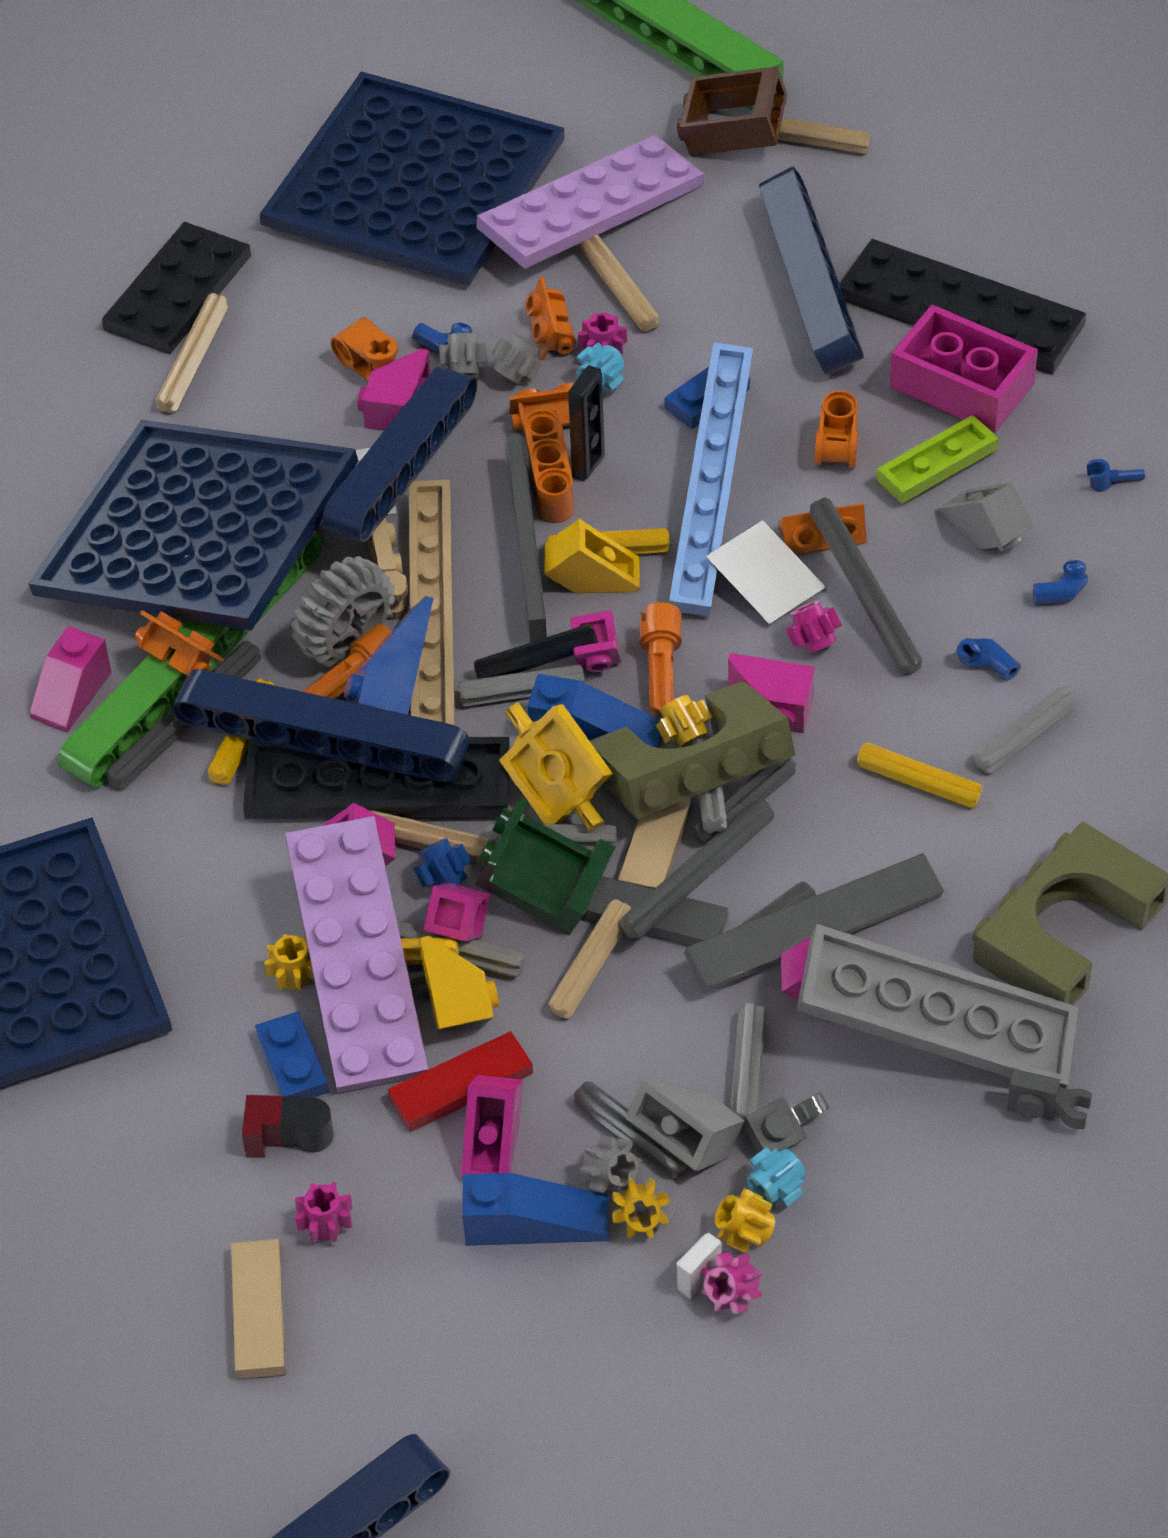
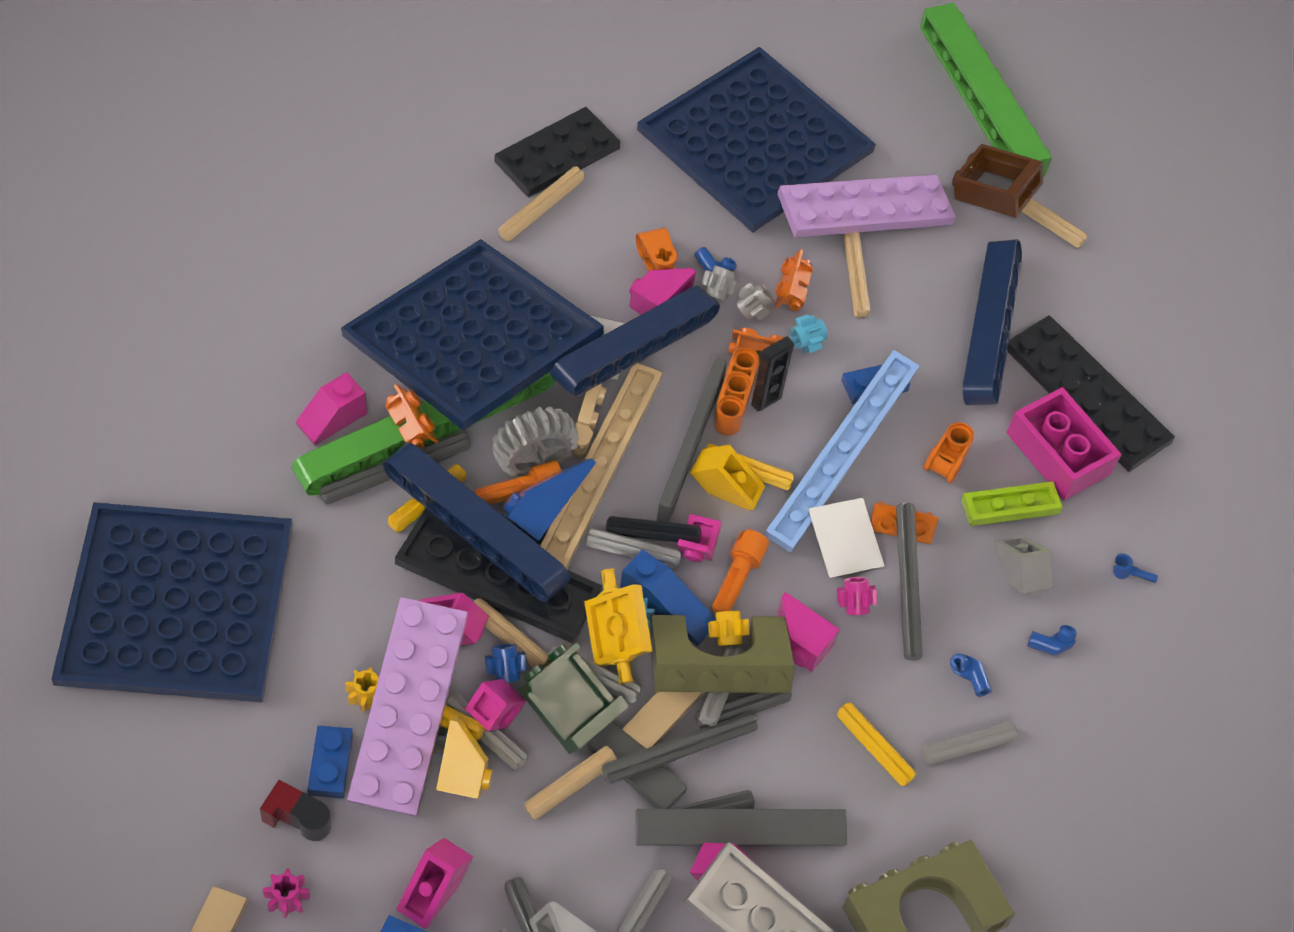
camera: 15 degrees right, 5 degrees up
(446, 1085) = (418, 832): red tile -> none
(602, 329) = (824, 307): dark pink gear -> none

